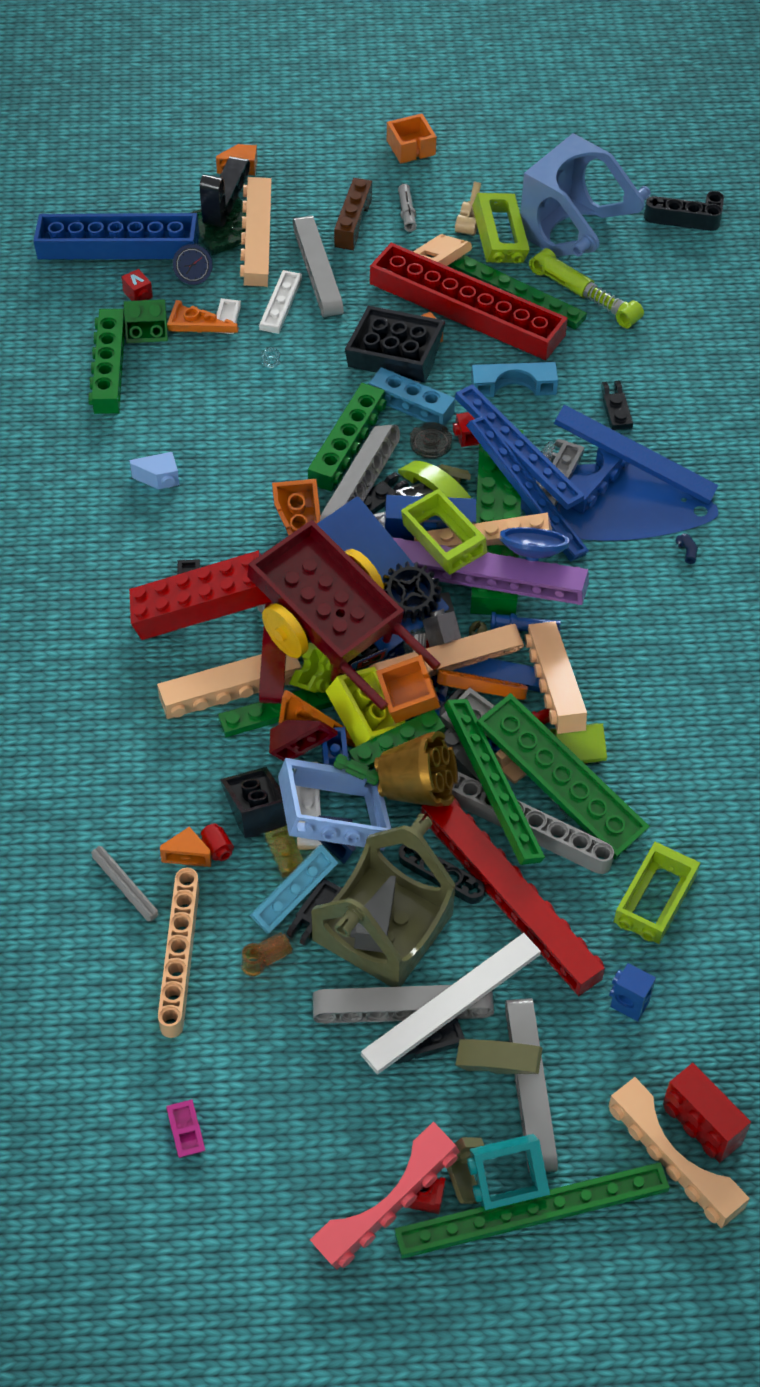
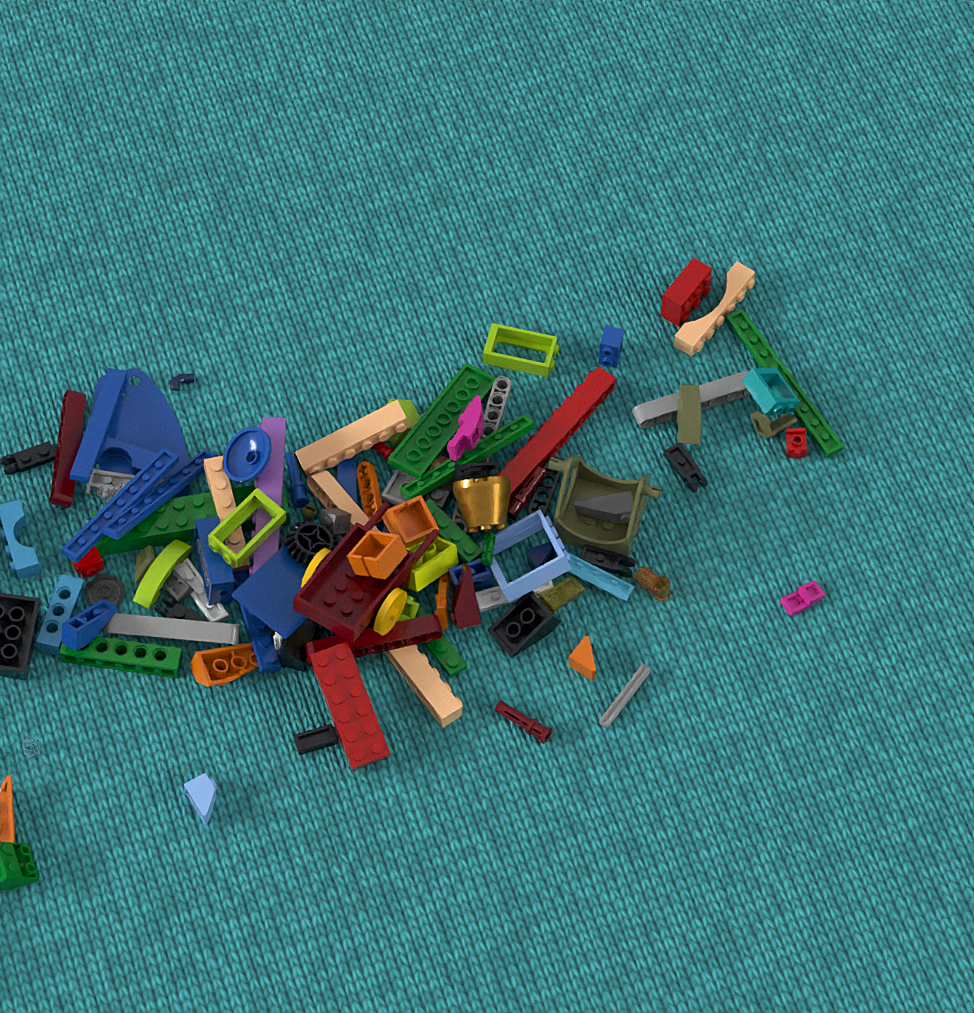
camera: 105 degrees left, 5 degrees up
(108, 361) = (62, 877): green brick -> none
(122, 775) = (531, 726): none -> dark red pin
(181, 961) = (677, 632): light nougat beam -> none
(217, 841) = (570, 640): red brick -> none
(343, 607) = (377, 554): none -> orange piece
(343, 1237) = (845, 478): coral arch -> none
(380, 399) = (87, 624): none -> blue slope
(384, 1004) = (669, 501): light grey beam -> none
(442, 846) = (520, 499): none -> dark red pin
(450, 1003) = (659, 450): white tile -> none
(467, 777) = (474, 470): none -> black hinge
(537, 792) = (470, 430): none -> dark pink slope
(665, 443) = (67, 448): none -> dark red beam

